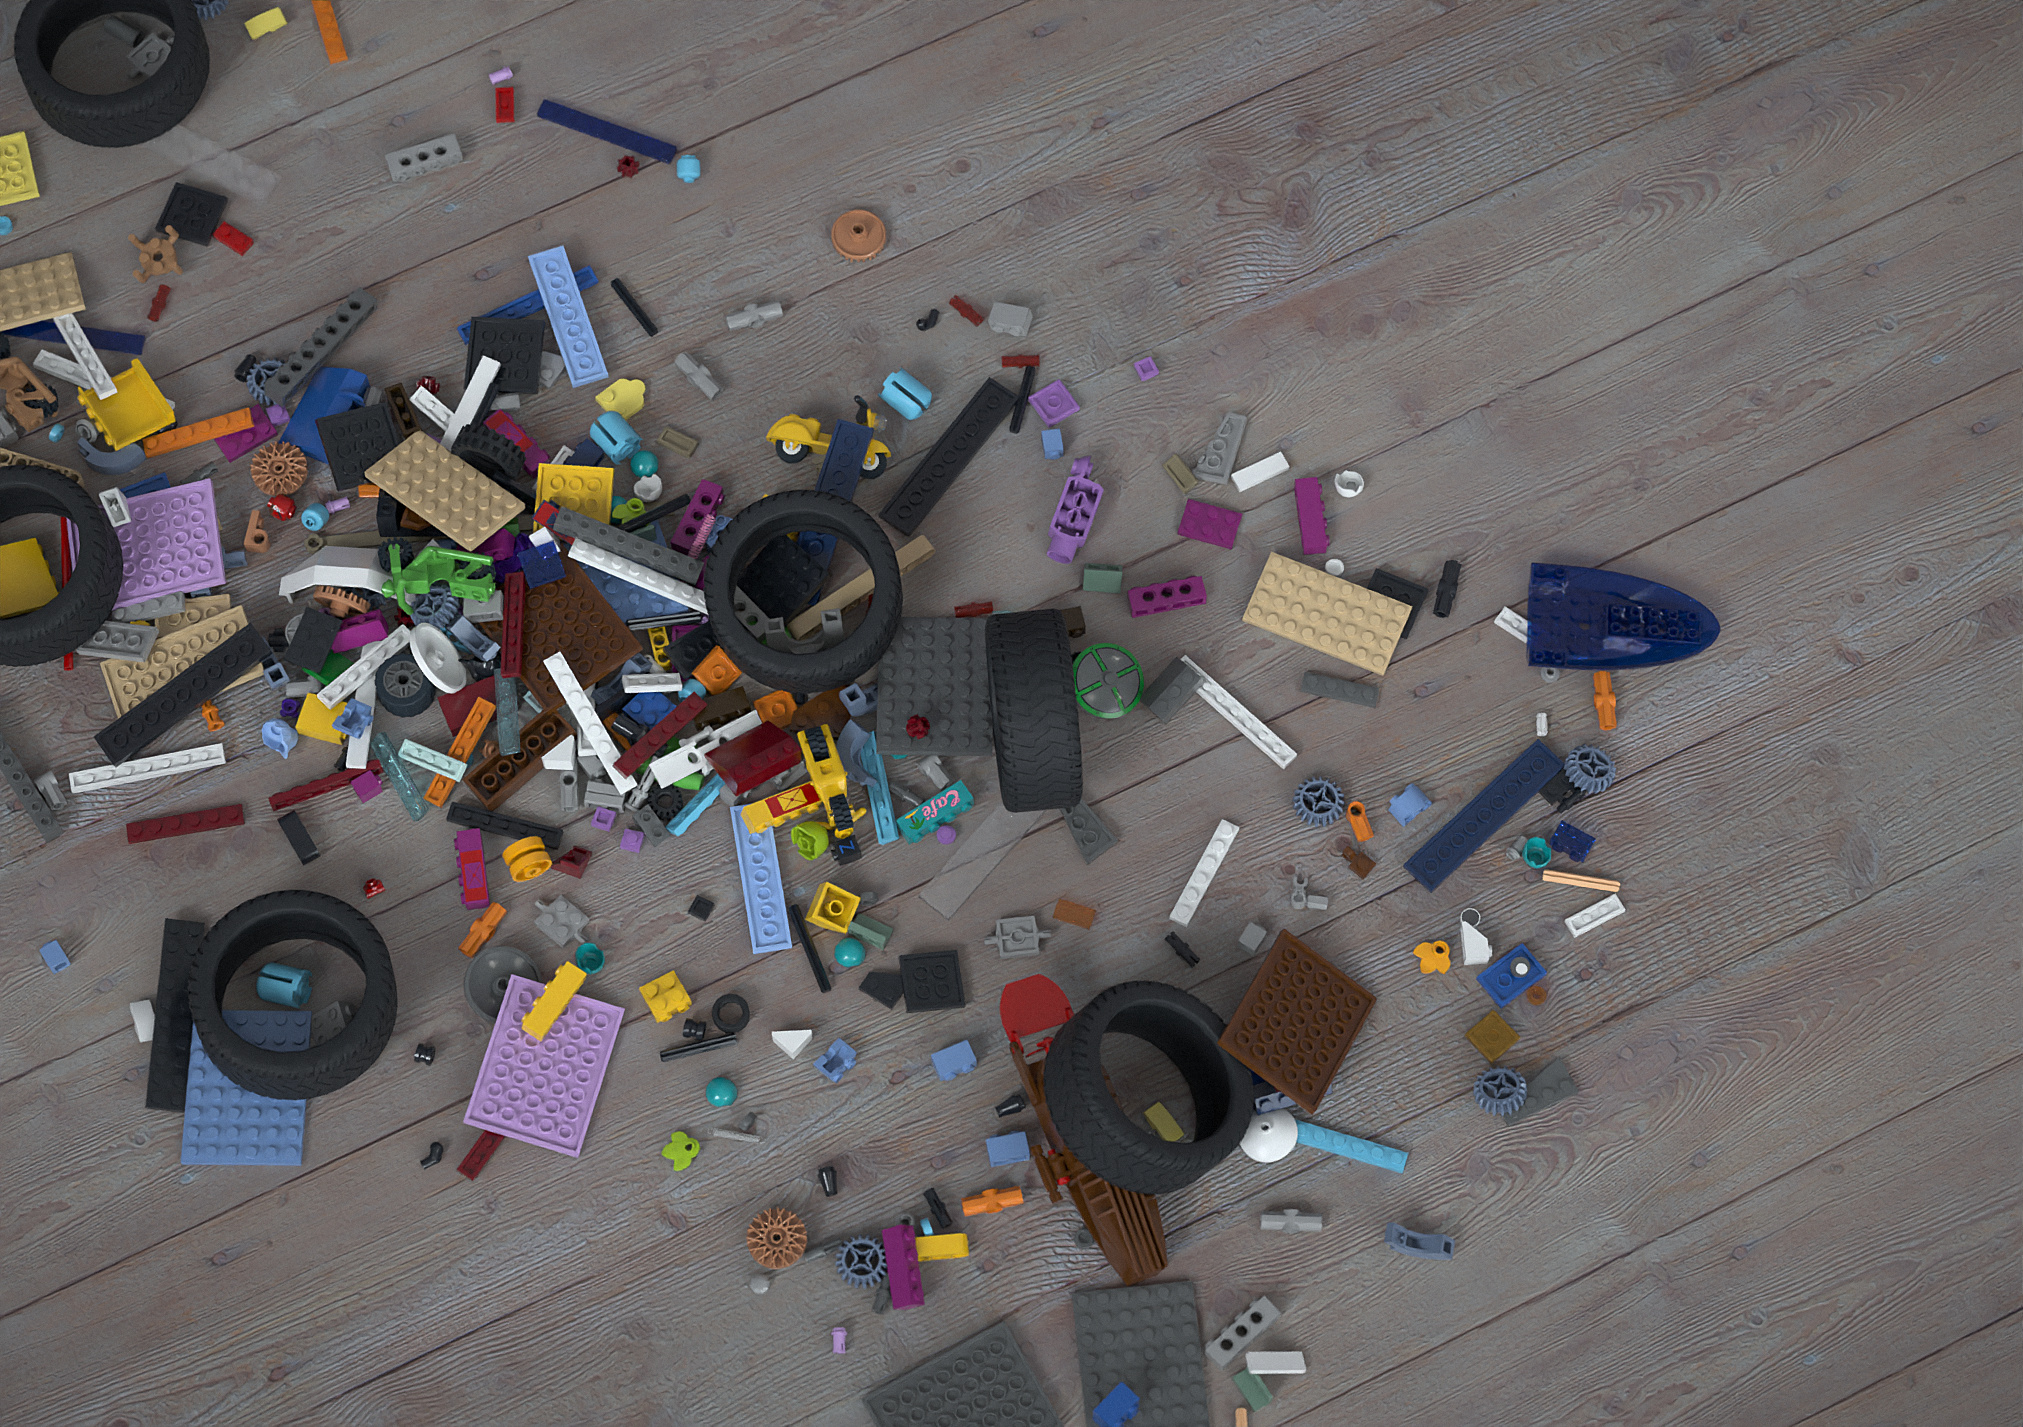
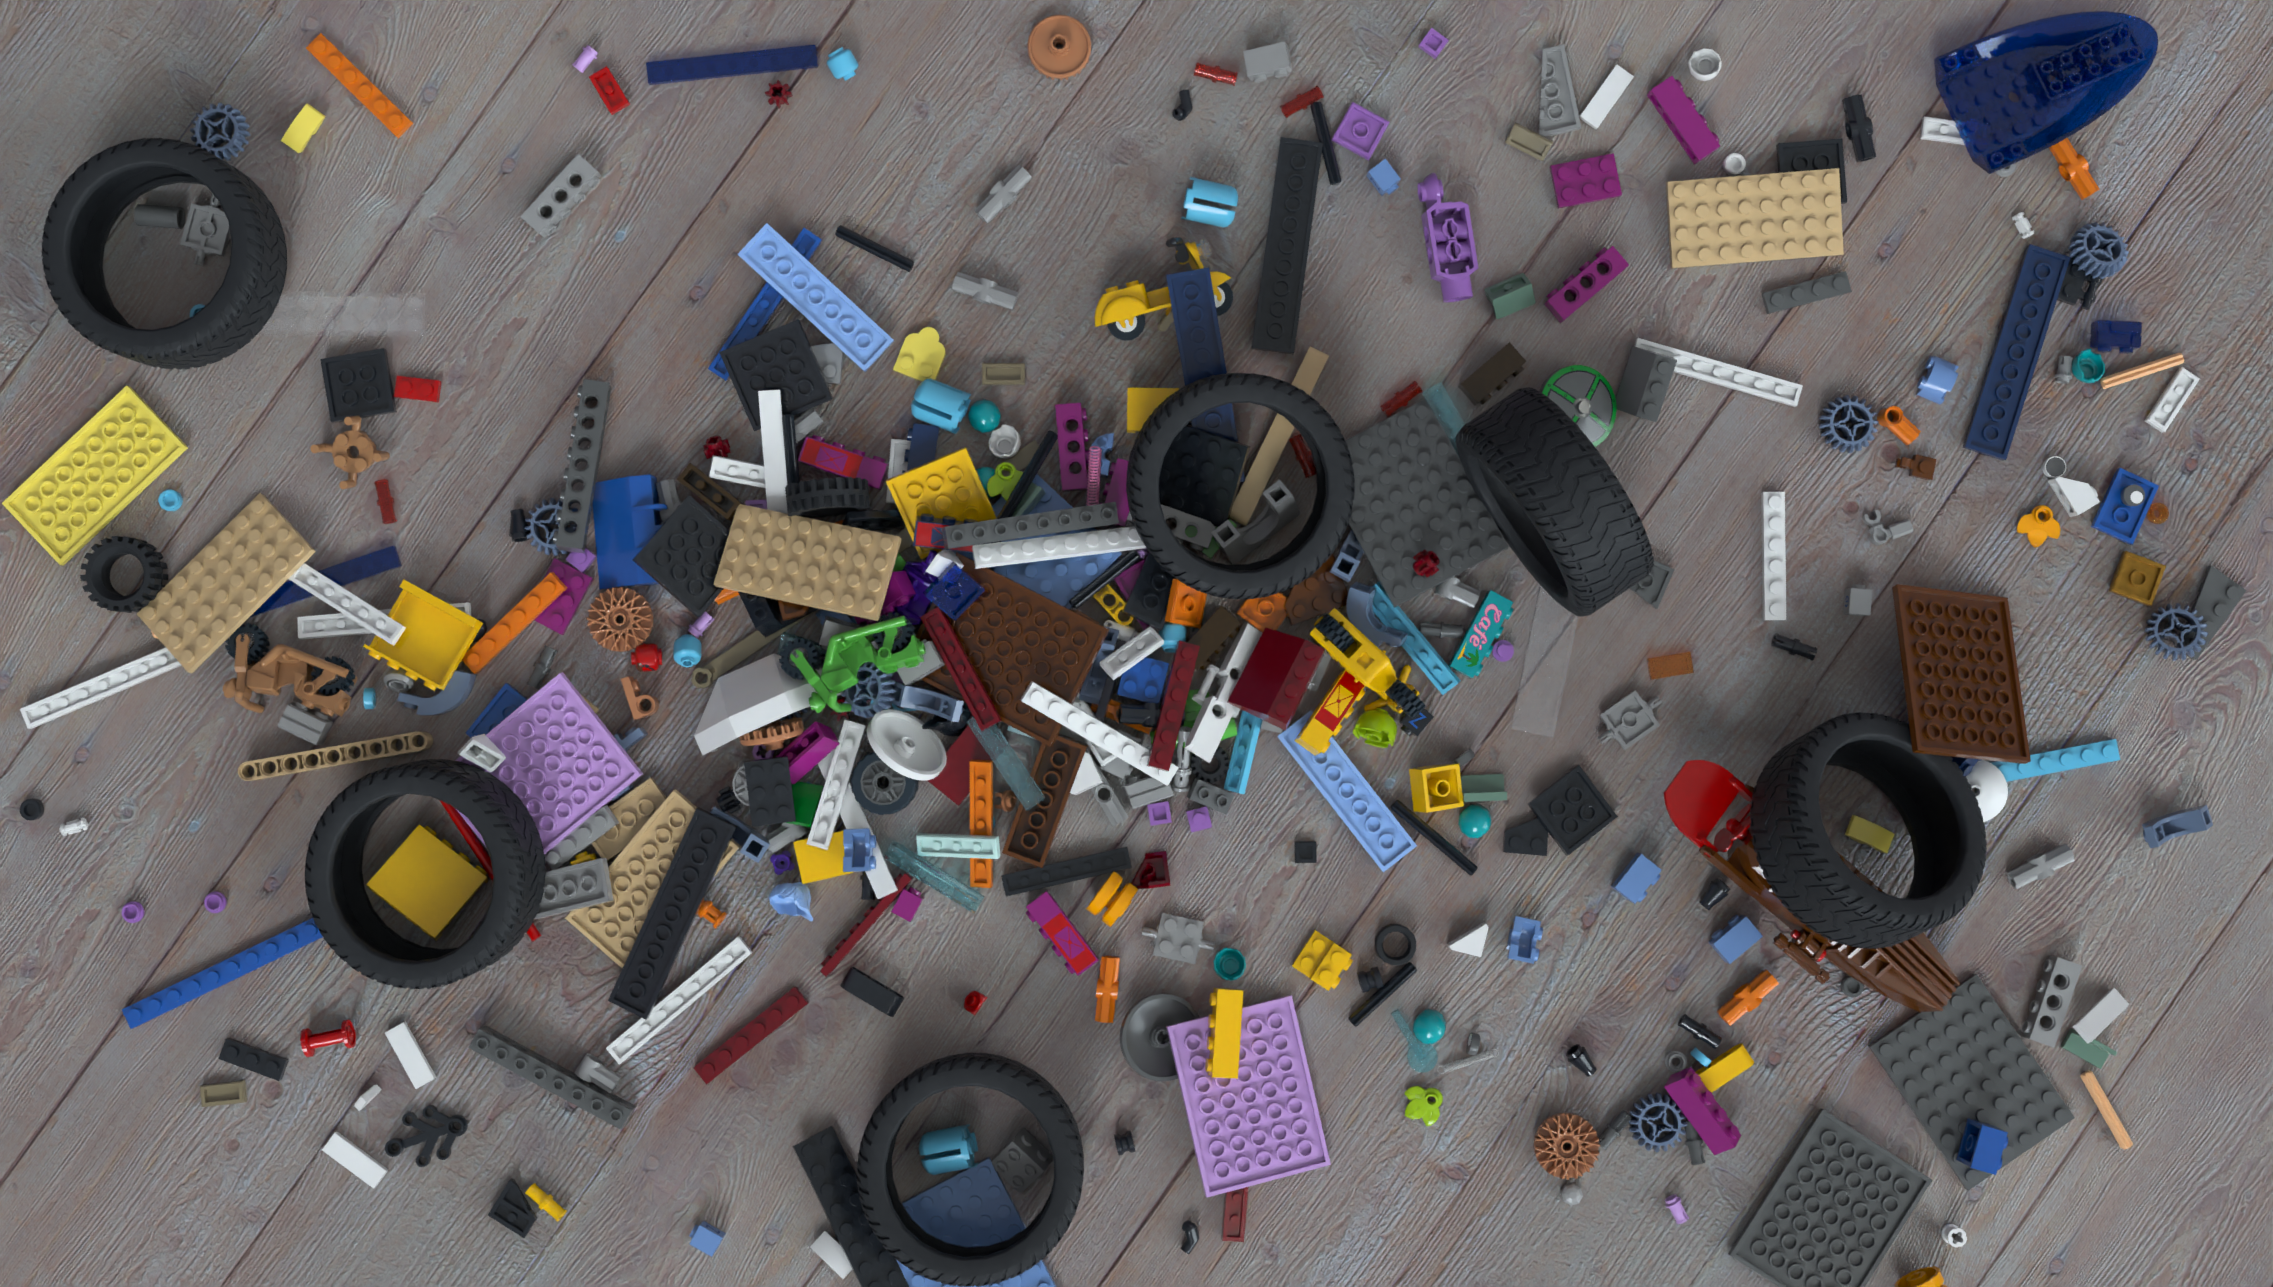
camera: 25 degrees left, 20 degrees up
(701, 1112) = (1420, 1056): none -> clear light blue piece

